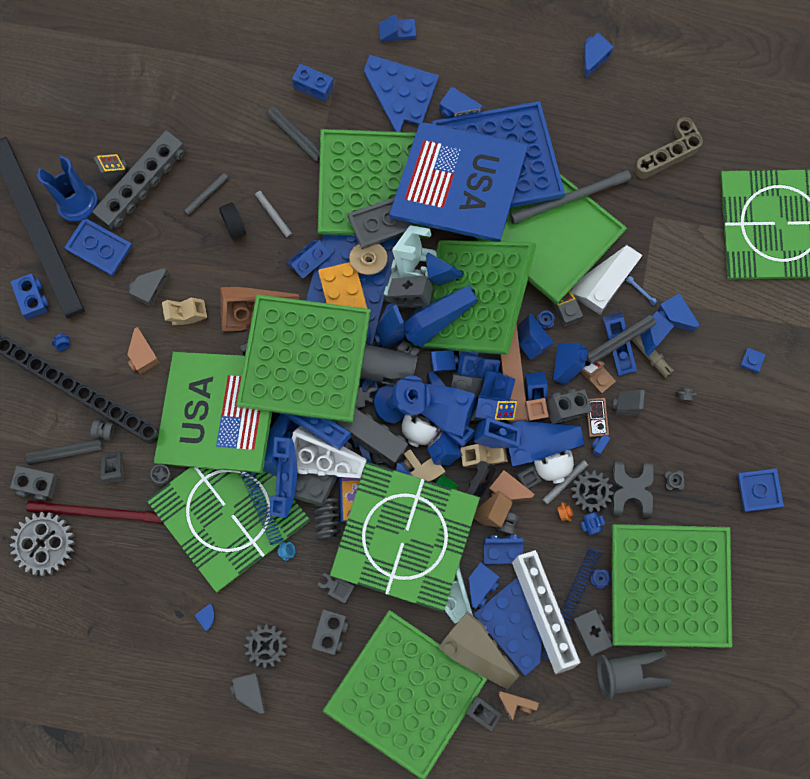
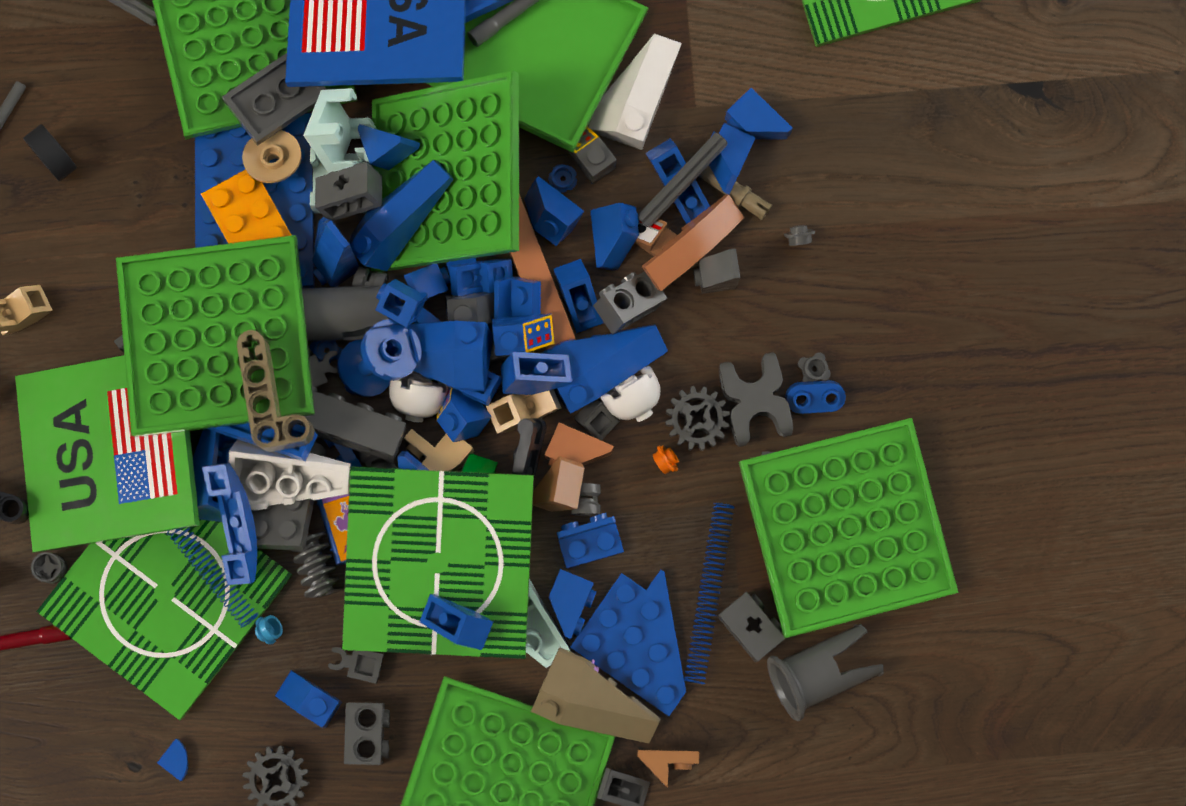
camera: 20 degrees left, 5 degrees up
(238, 305) = (94, 279): nougat wedge -> none
(274, 215) = (110, 125): light grey bar -> none
(299, 601) = (308, 699): none -> blue slope
(308, 258) = (182, 179): blue bracket -> none
(327, 399) = (267, 390): none -> dark tan beam
(406, 576) = (456, 622): none -> blue slope
(420, 371) = (392, 307): none -> blue brick
(536, 409) = (584, 318): nougat plate -> none
(545, 612) = (674, 616): white brick -> none
(568, 479) = (649, 423): light grey bar -> none
(592, 523) = (710, 465): blue gear -> none
(597, 418) = (679, 309): tile -> none
(599, 445) = (690, 346): blue plate -> none
(605, 578) = (750, 543): blue plate -> none
(618, 380) = (693, 242): none -> nougat slope
(630, 279) = (714, 108): medium blue hinge -> none
(671, 498) = (816, 396): none -> blue plate
(752, 360) = (883, 159): blue plate -> none
(760, 490) = (942, 350): blue plate -> none

